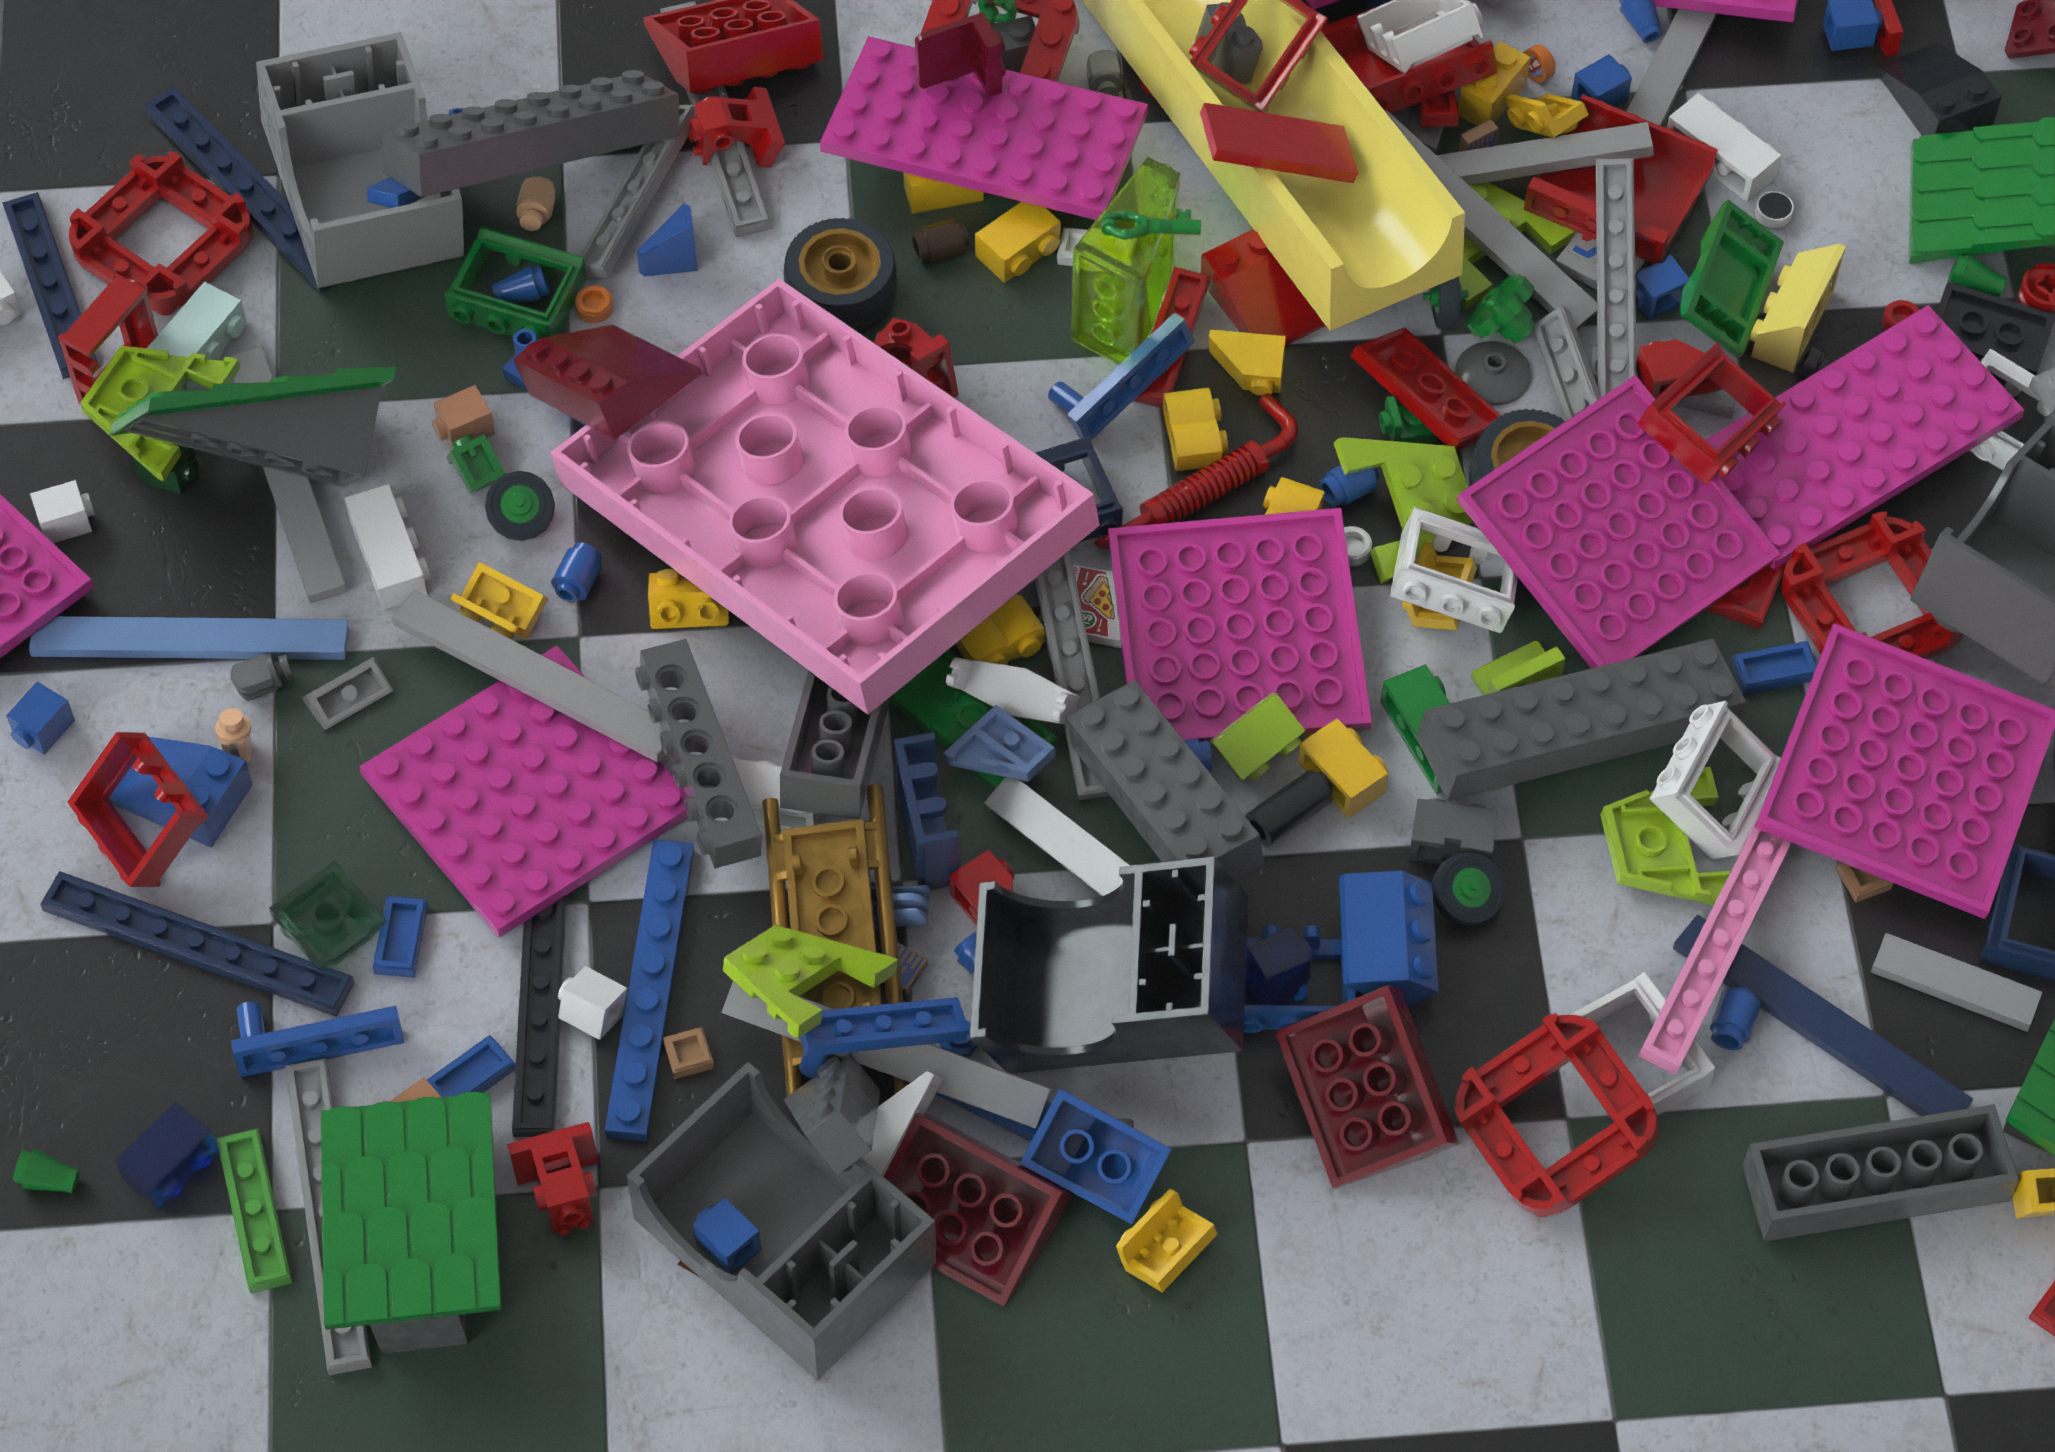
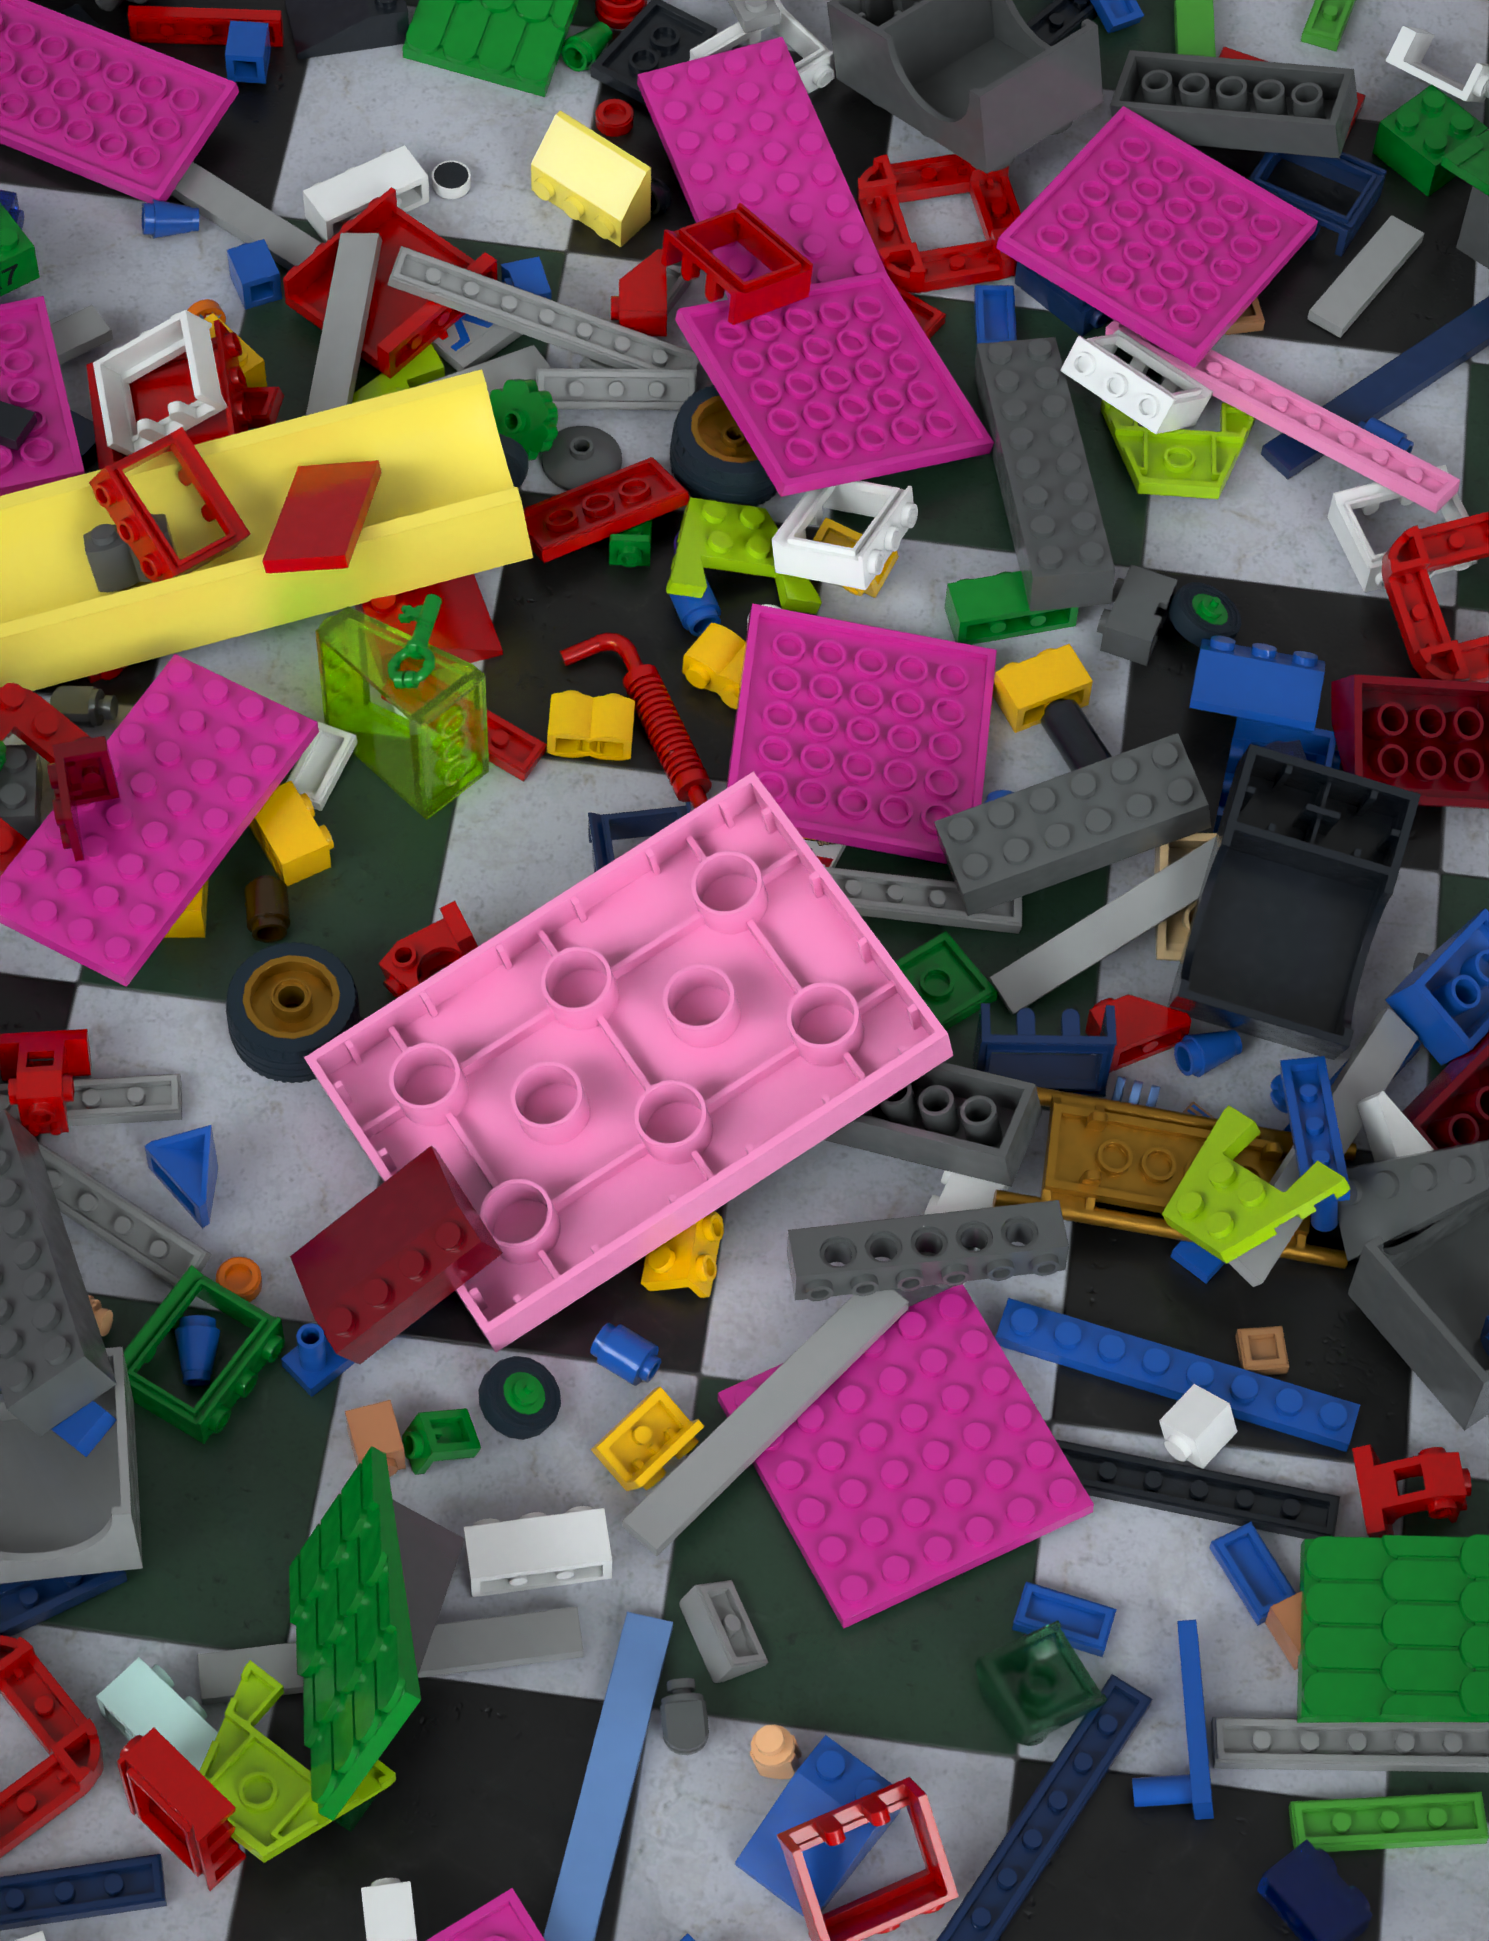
camera: 80 degrees left, 0 degrees up
(1000, 748) = (962, 975): medium blue wing -> none
(1013, 690) = (914, 923): white piece -> none
(1126, 381) = (547, 813): blue piece -> none
(1250, 359) = (522, 651): yellow slope -> none
(1258, 737) = (1001, 744): lime brick -> none
(1479, 137) = (293, 394): medium nougat tile -> none
(1519, 668) = (958, 521): lime panel -> none
(1546, 115) = (286, 320): yellow bracket -> none
(1730, 278) = (542, 226): green slope -> none

